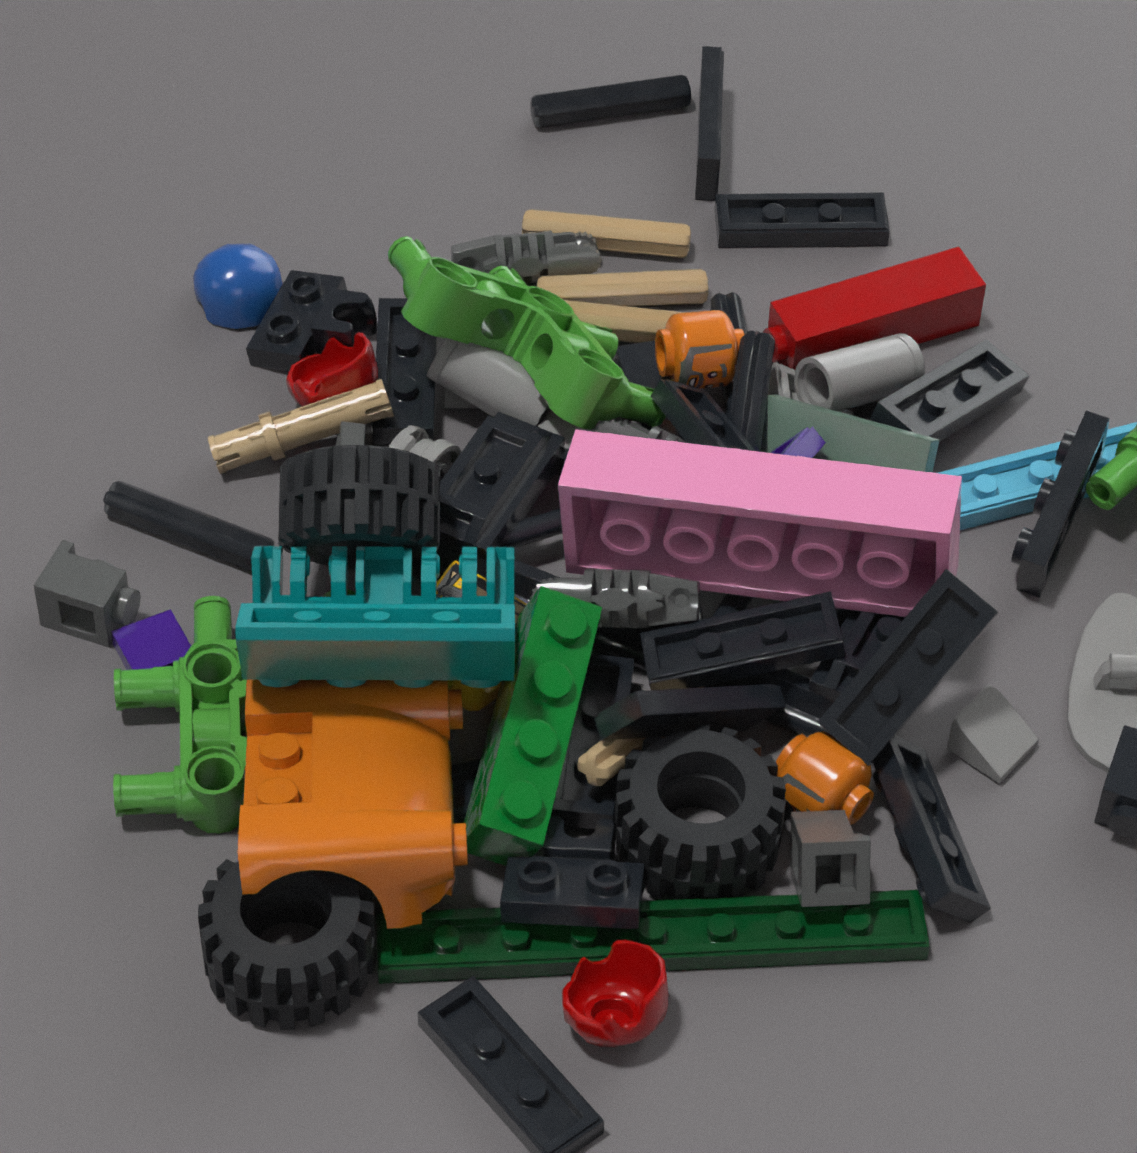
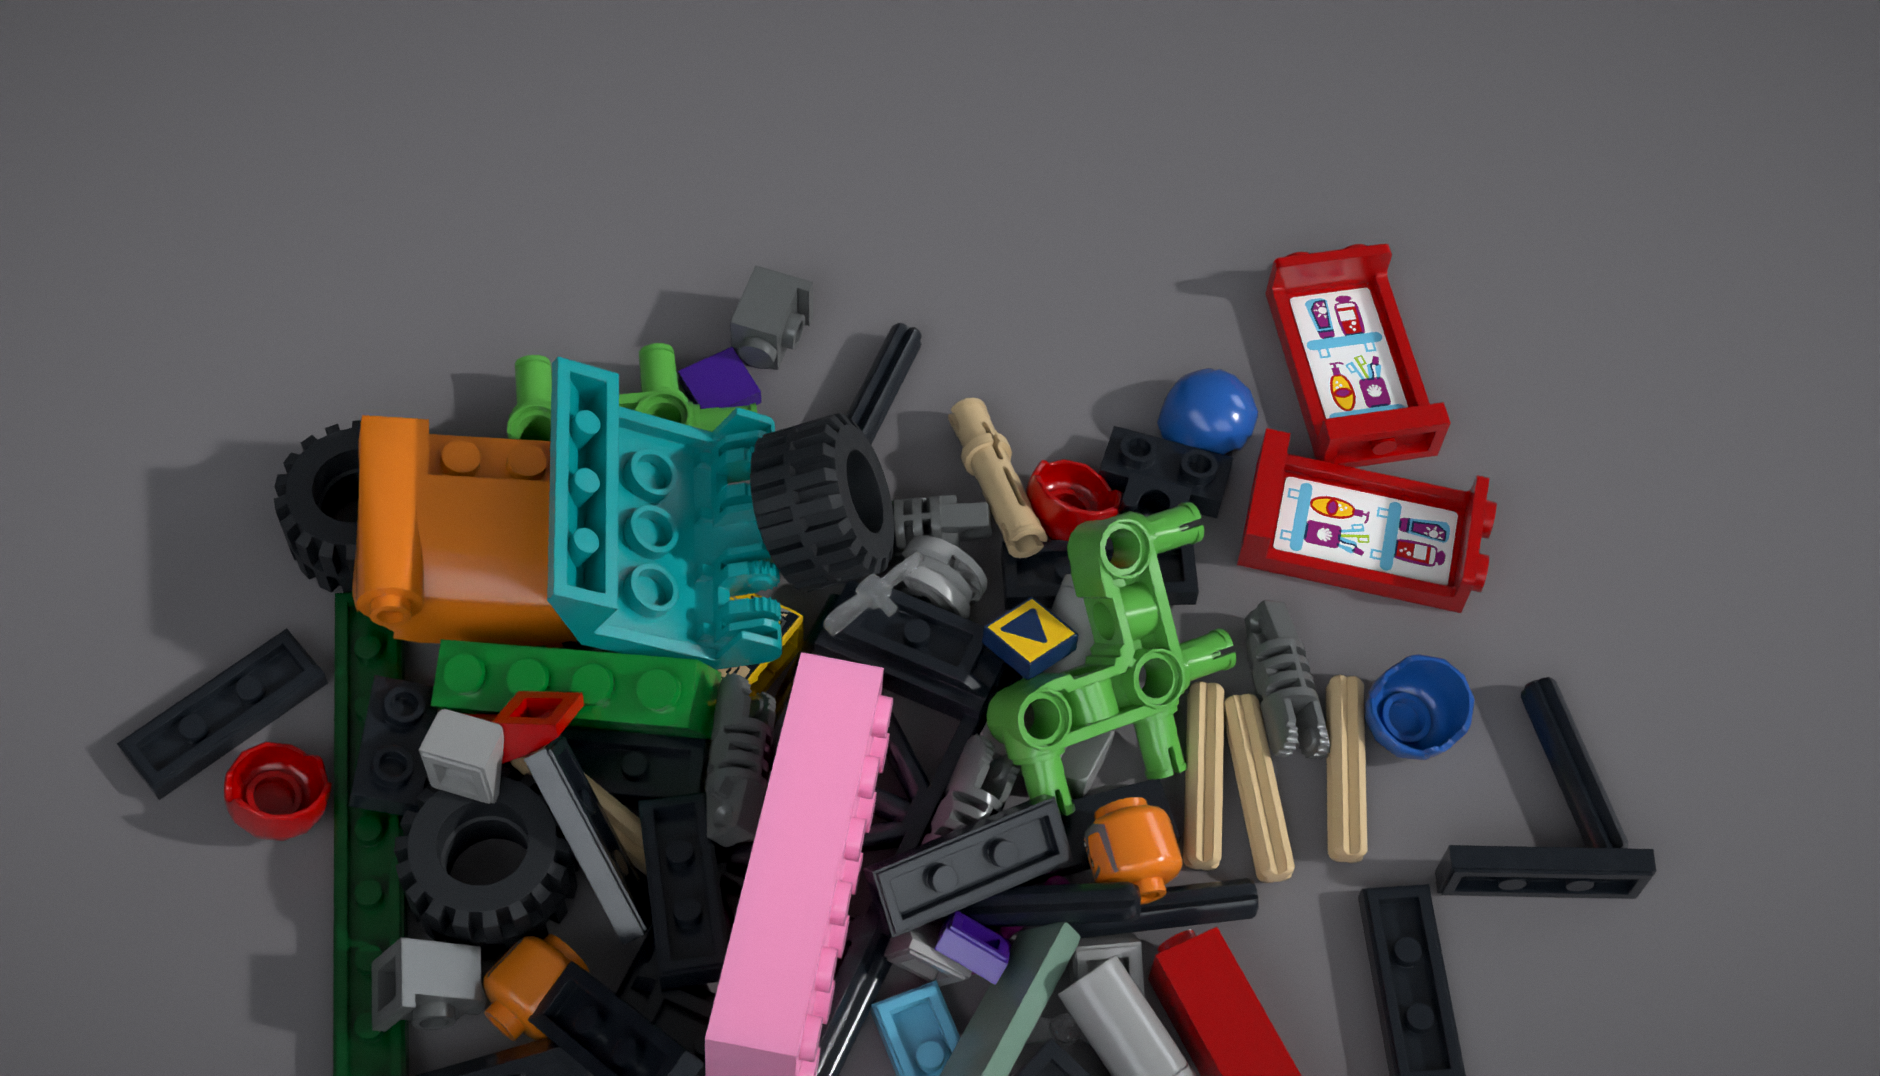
camera: 85 degrees right, 10 degrees up
(191, 186) = (1352, 358): none -> red panel
(370, 191) = (1365, 529): none -> panel
(454, 487) = (871, 593): none -> clear piece
(505, 382) = (1030, 638): none -> tile
(561, 172) = (1419, 707): none -> blue hair
(596, 738) = (534, 720): none -> red slope
(628, 775) = (464, 755): none -> light grey slope

